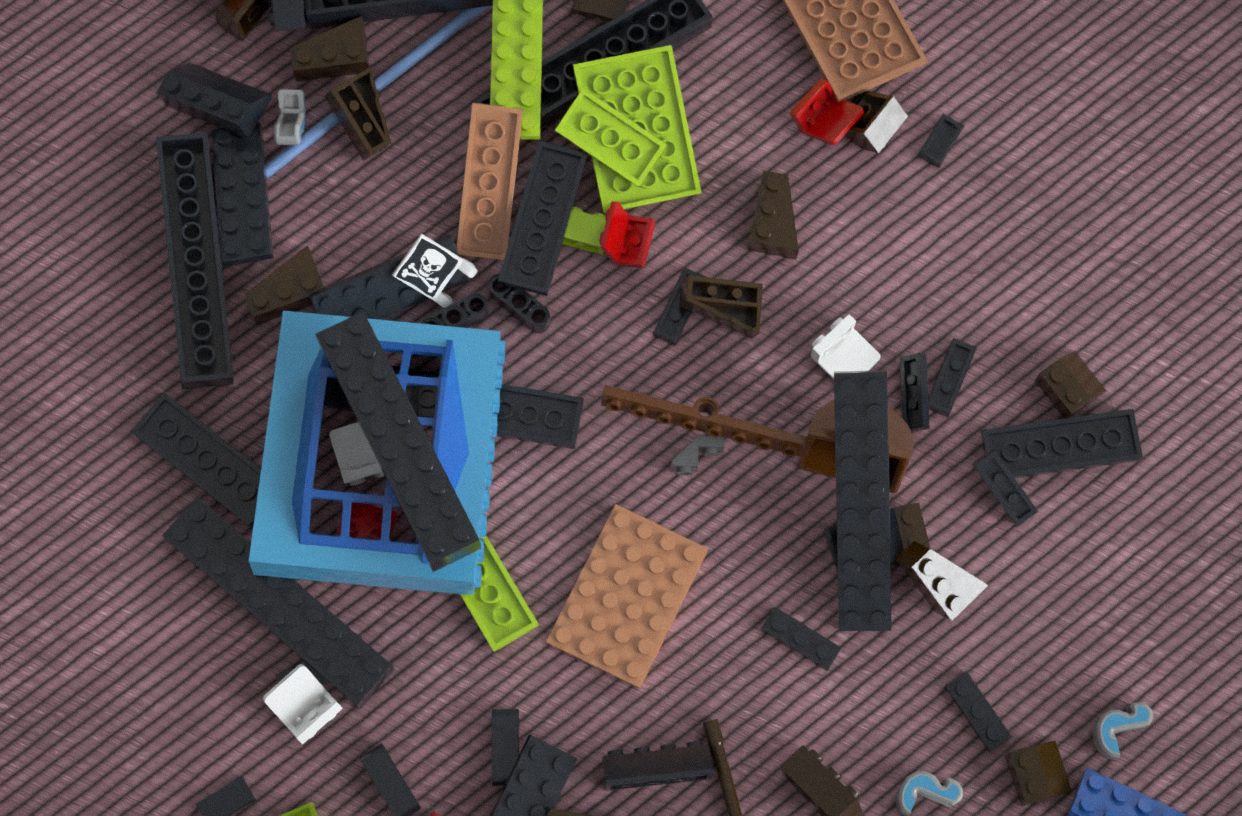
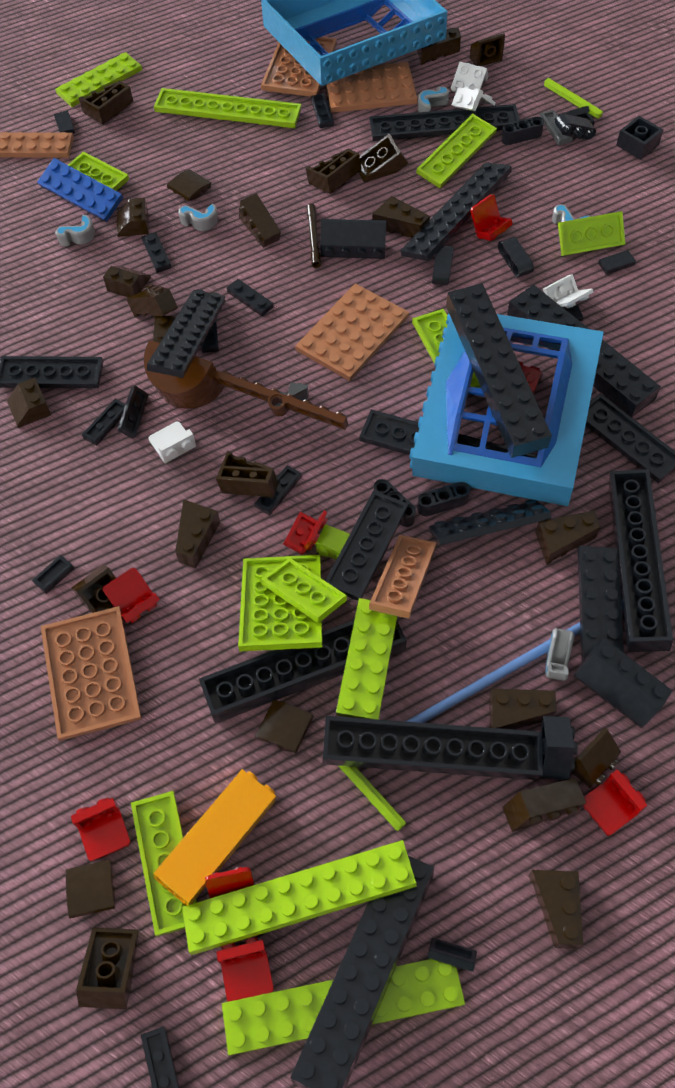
camera: 165 degrees left, 15 degrees down
(360, 113) = (501, 649): dark brown wedge -> none
(430, 267) = (454, 521): flag -> none
(1004, 639) = (125, 281): none -> dark brown slope
(1005, 487) = (95, 348): black plate -> none

